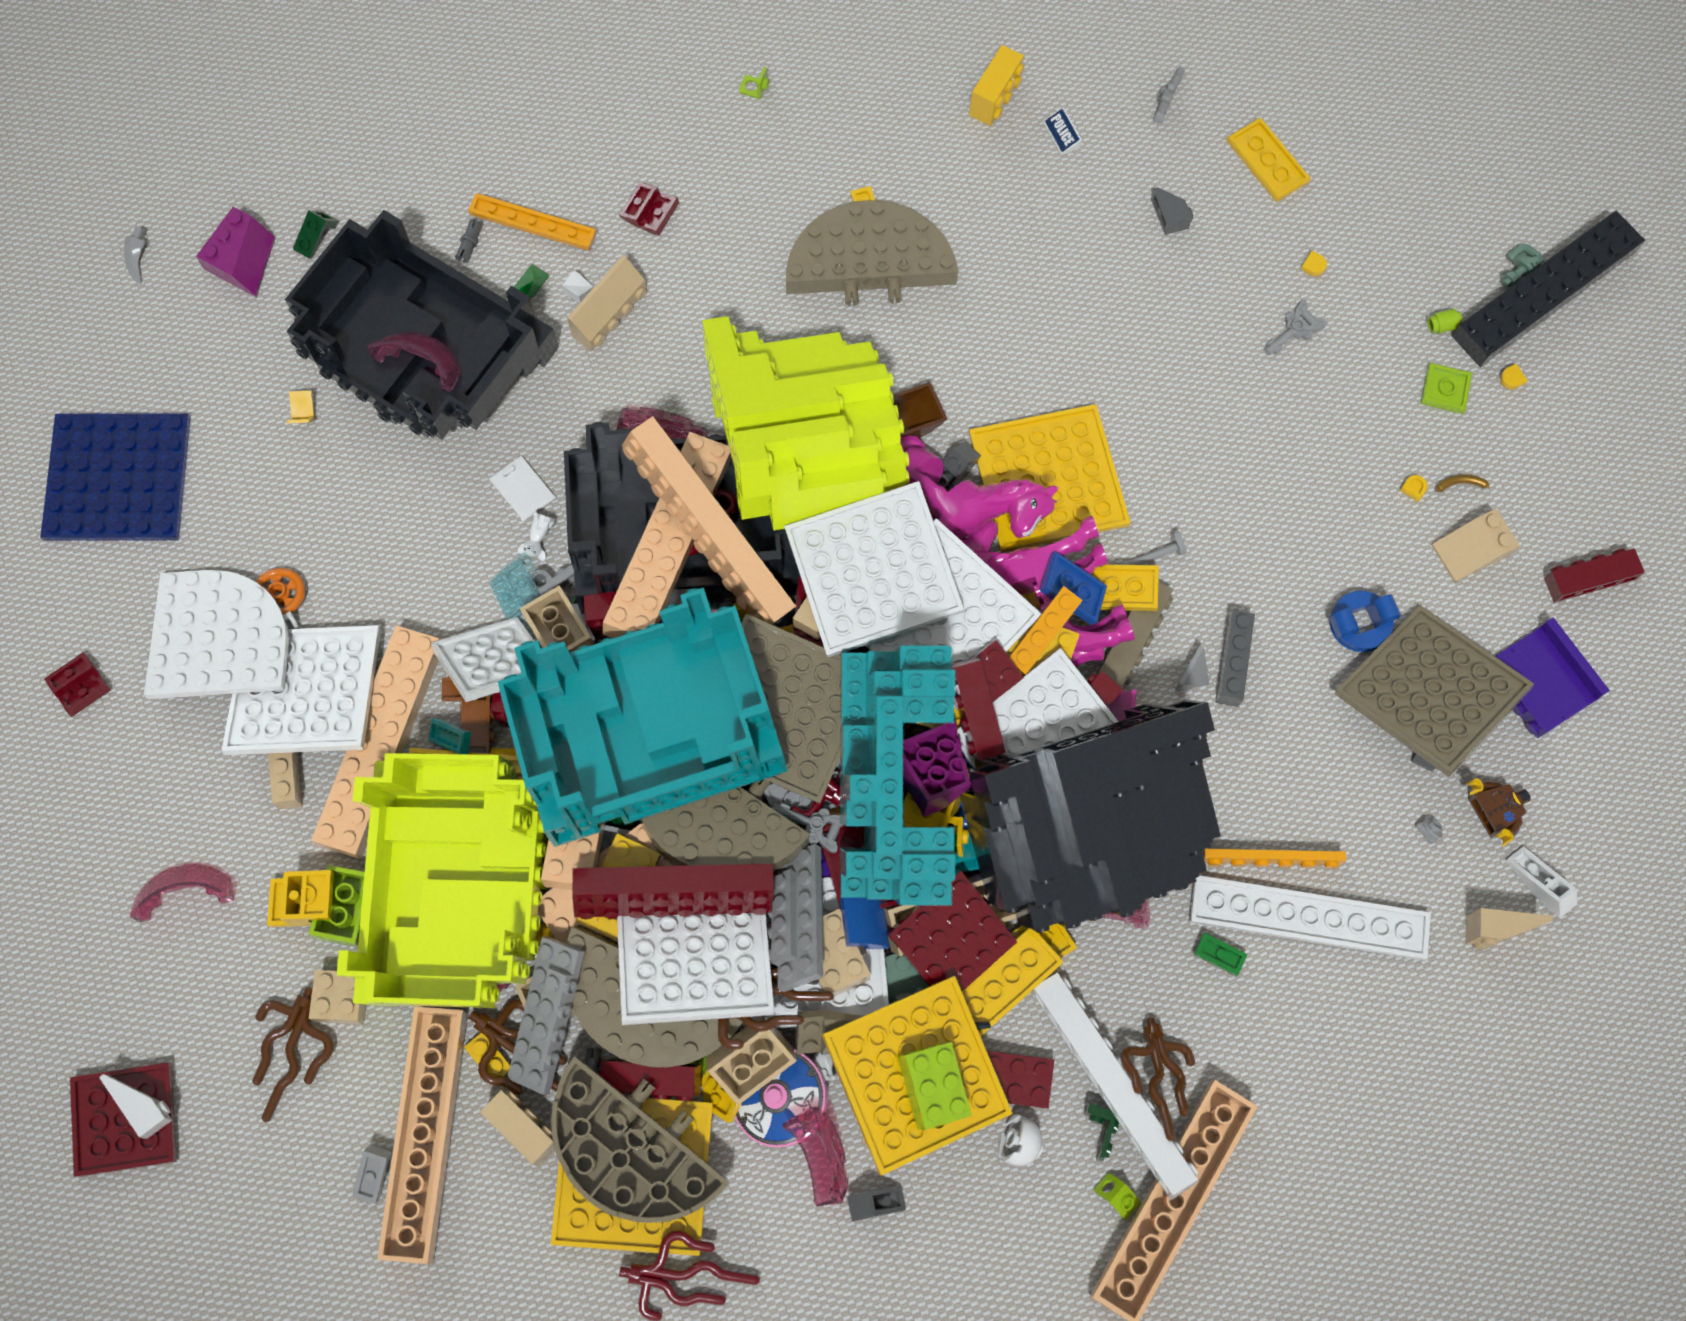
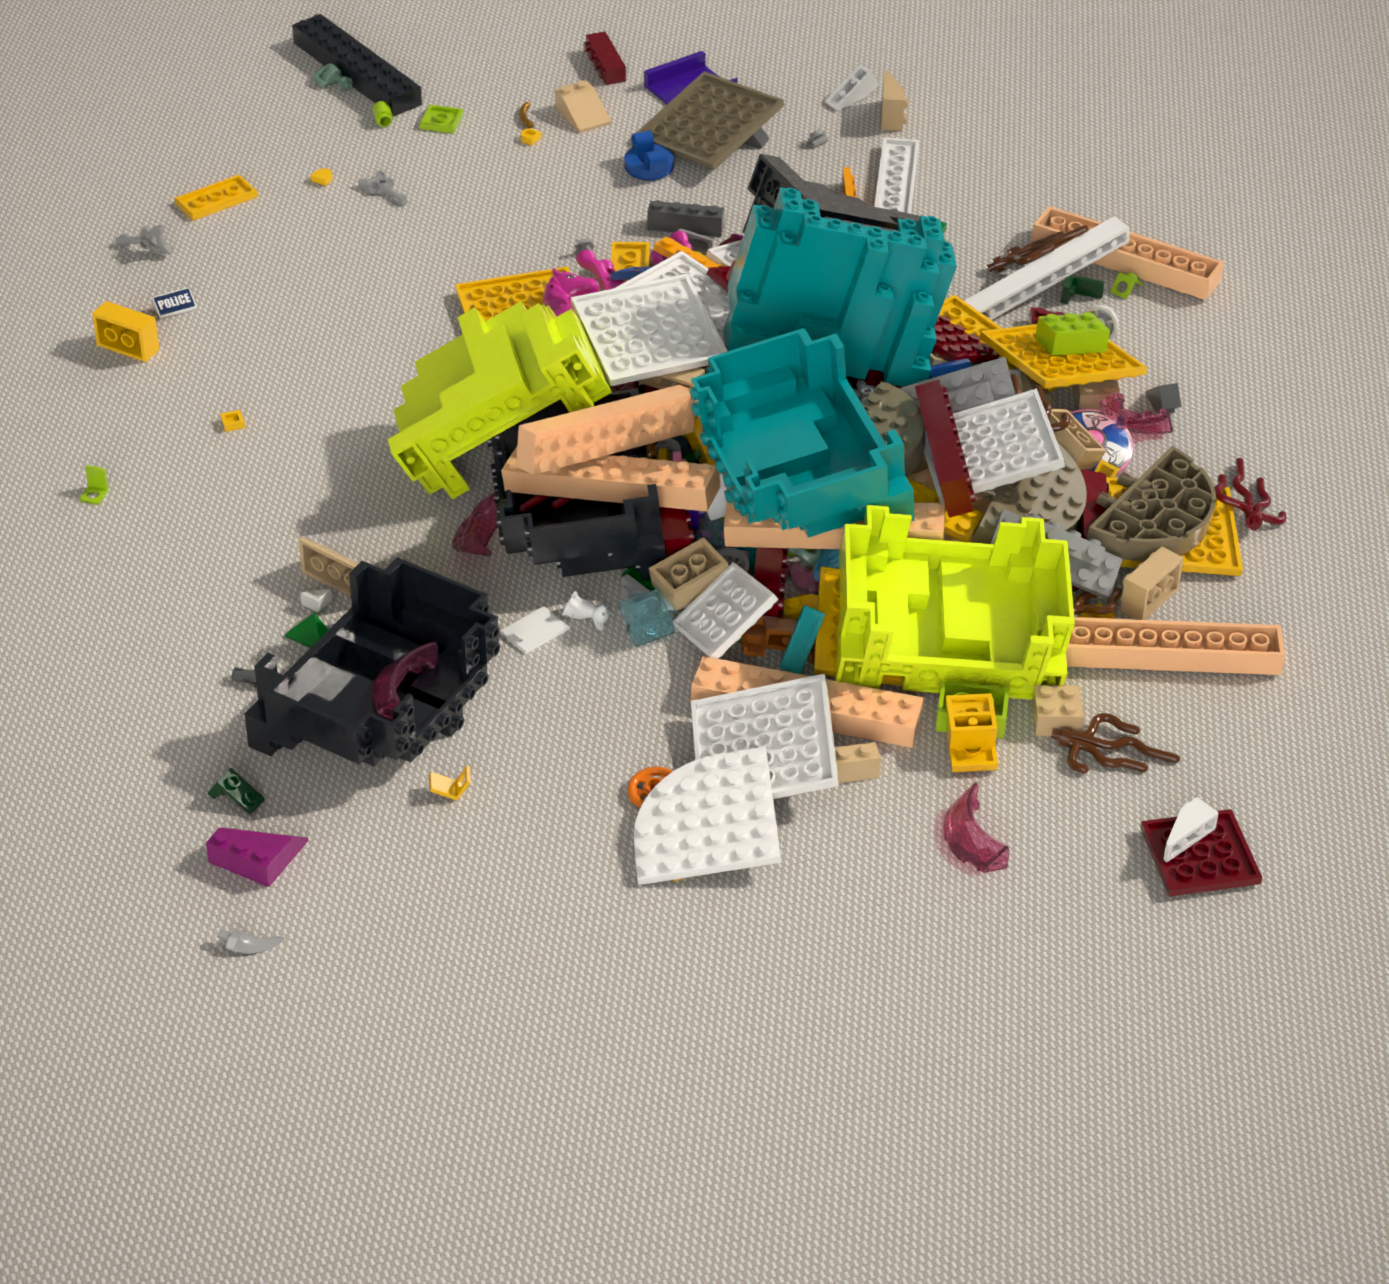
camera: 90 degrees left, 30 degrees down
(77, 684) = (765, 935): dark red slope -> none
(116, 477) = (524, 931): clear blue plate -> none
(371, 1174) = (1205, 675): light grey plate -> none
(532, 221) = (237, 632): light orange plate -> none
(649, 208) = (229, 554): dark red slope -> none
(867, 249) = (290, 410): dark tan brick -> none
(1171, 211) = (265, 244): dark grey slope -> none
(1498, 808) = (801, 106): reddish brown torso -> none
(1513, 377) = (433, 88): yellow tile -> none

